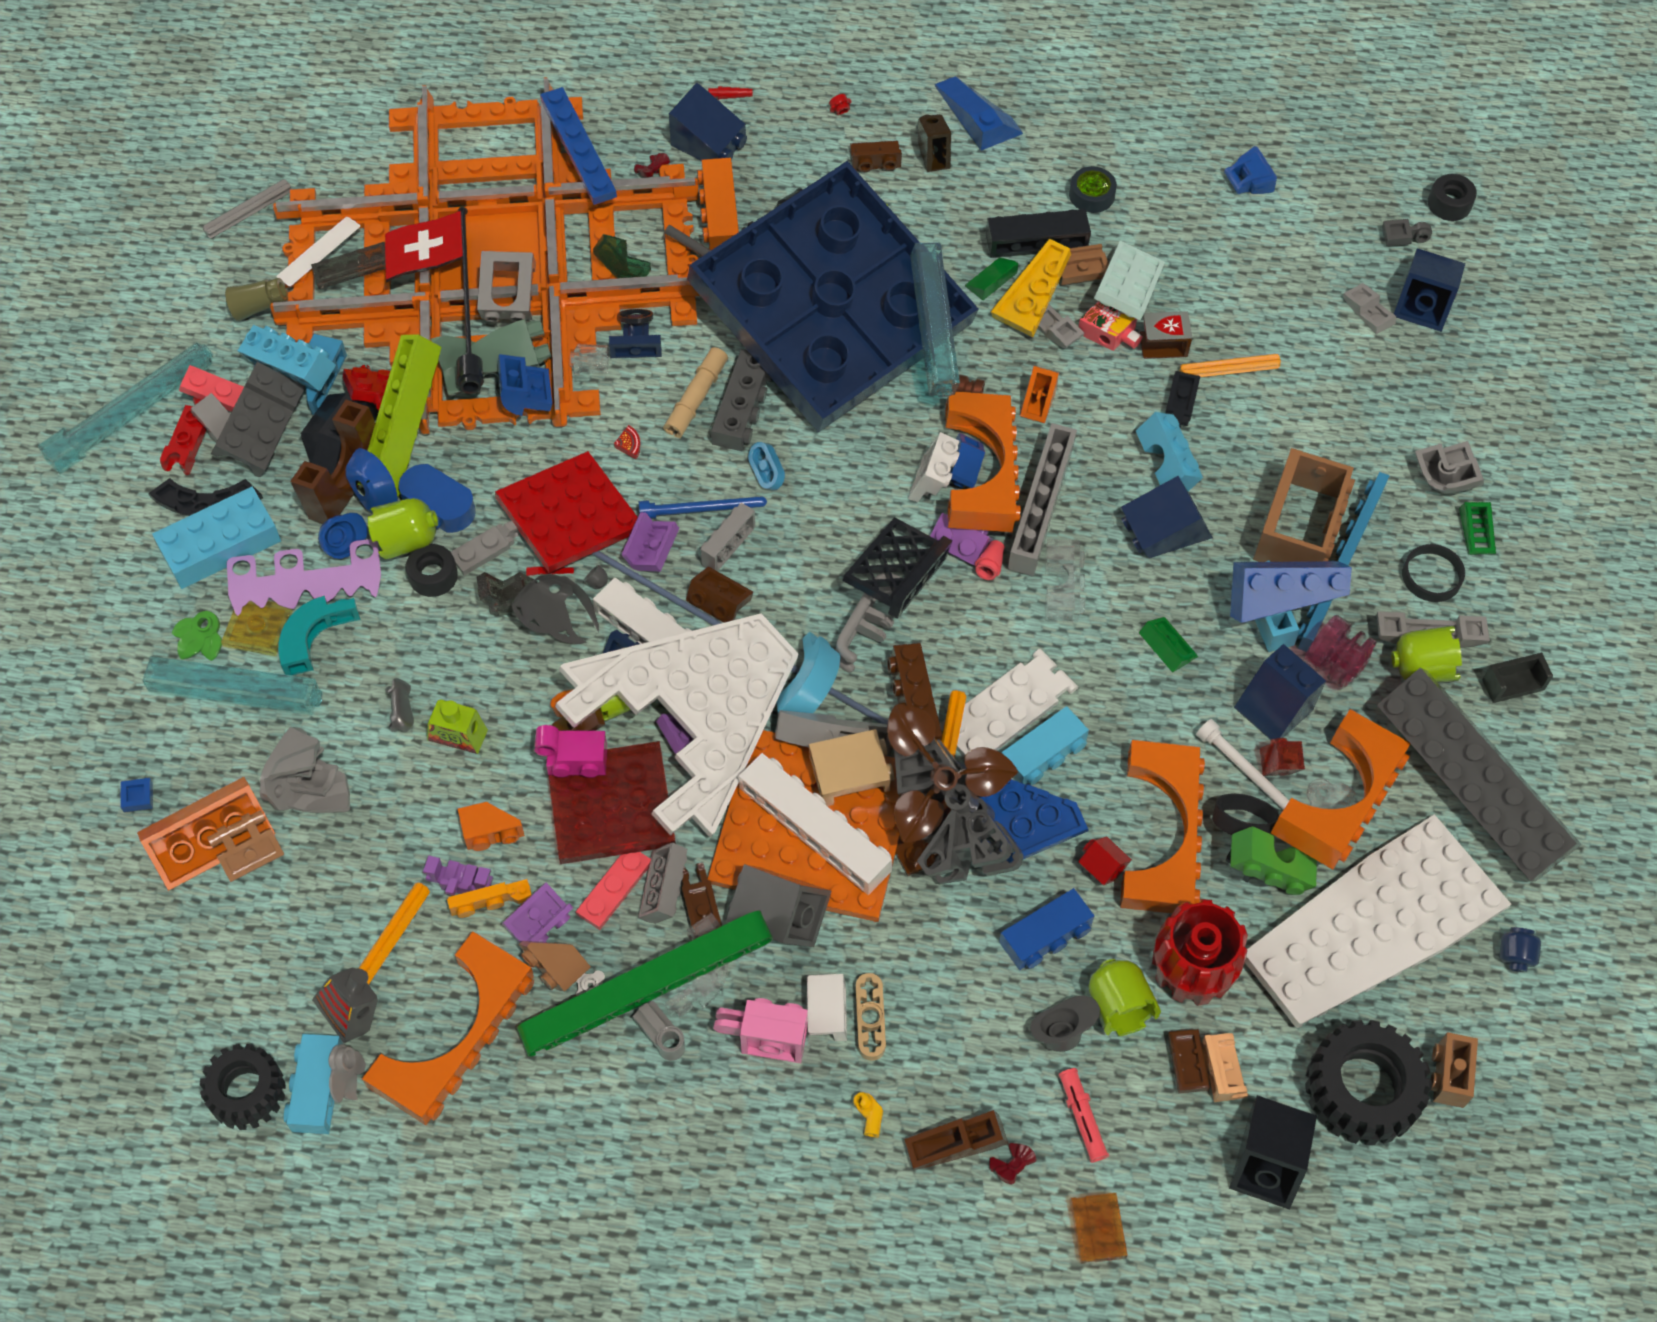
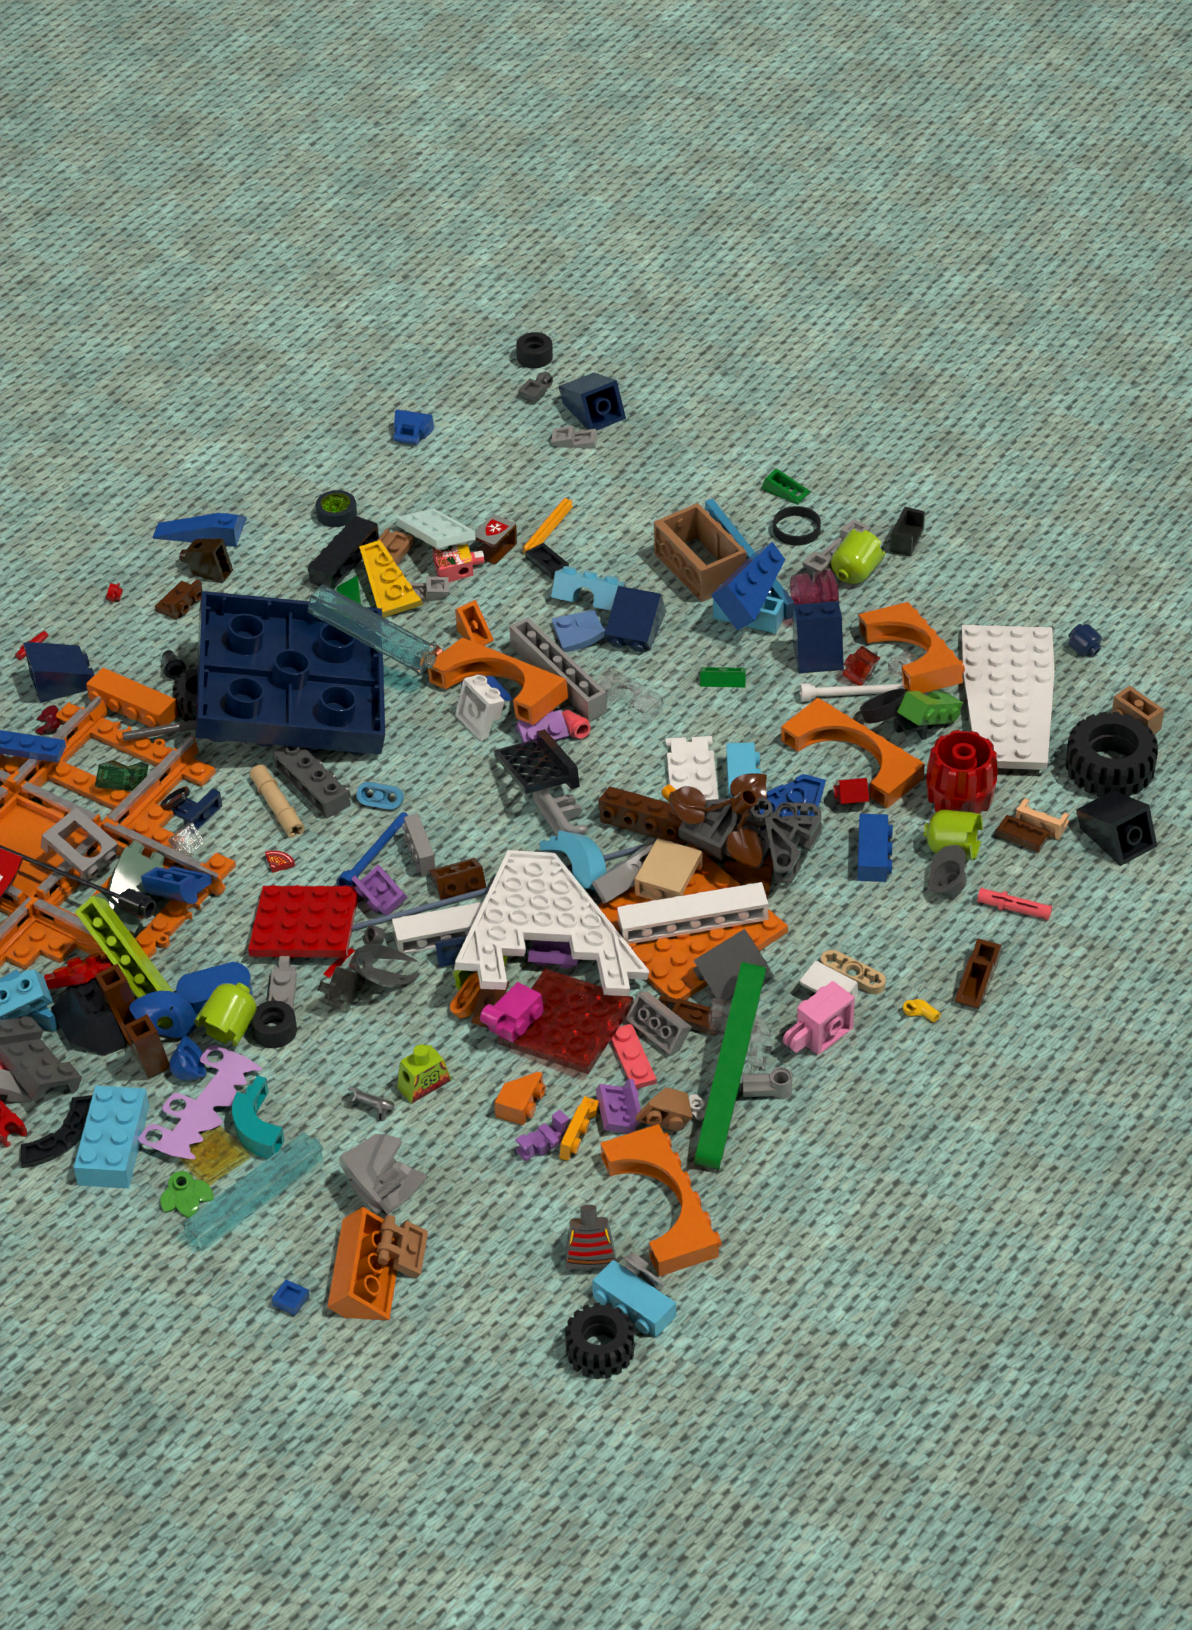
camera: 50 degrees left, 15 degrees down
(394, 930) = (549, 1195): light orange axle -> none
(1022, 1156) = (1017, 950): dark red piece -> none
(1098, 1228) = (1095, 939): clear orange plate -> none
(1116, 481) = (578, 630): none -> medium blue plate
(1450, 468) = (734, 469): light grey brick -> none
(1479, 775) = (958, 583): dark grey brick -> none

